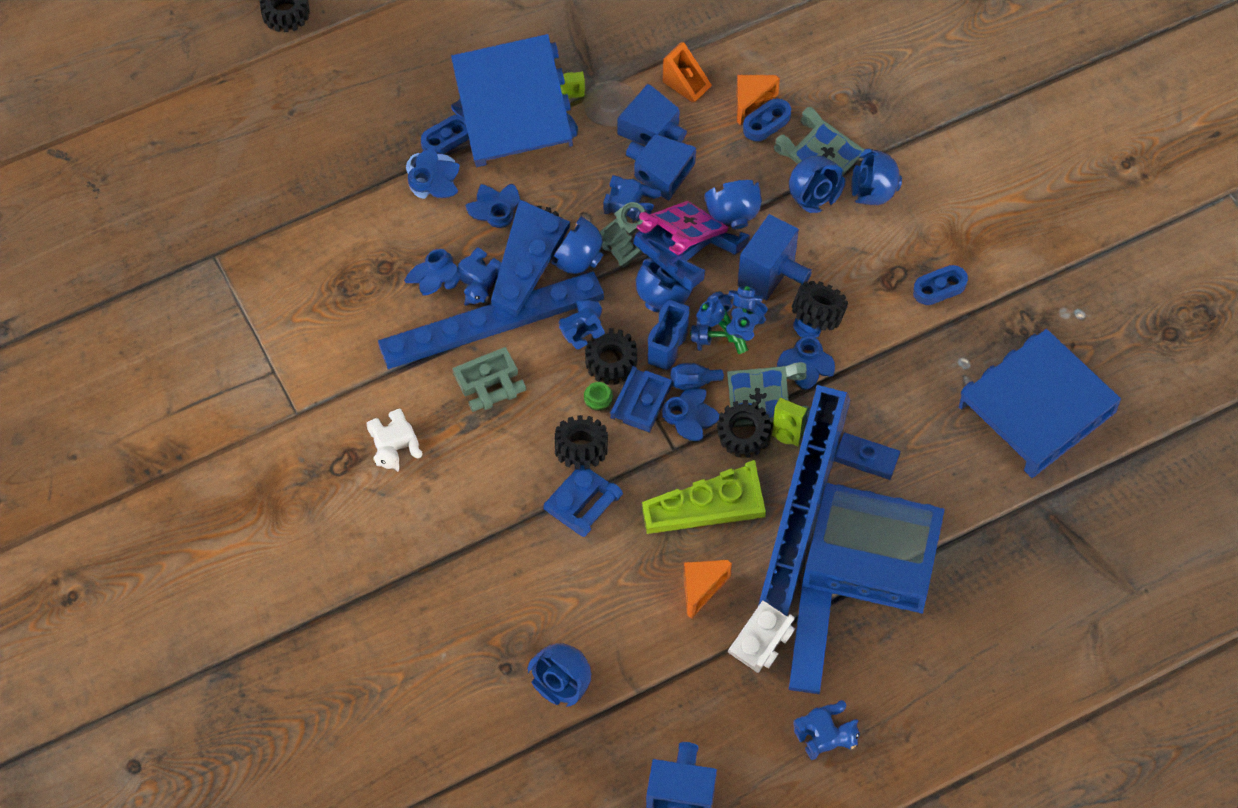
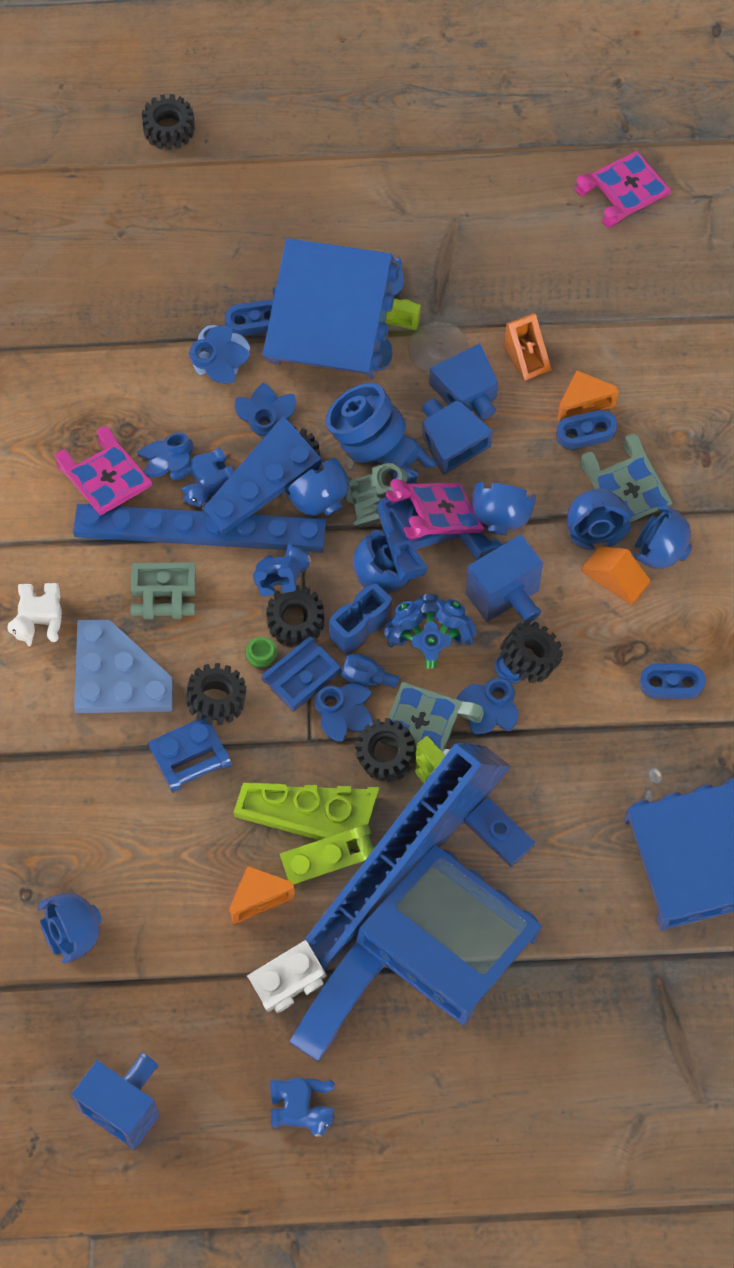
camera: 25 degrees right, 5 degrees up
(390, 309) = (107, 476): none -> dark pink flag
(485, 461) = (117, 673): none -> medium blue plate
(590, 179) = (365, 422): none -> blue wheel
(742, 528) = (326, 855): none -> lime plate
(851, 219) = (617, 572): none -> orange slope

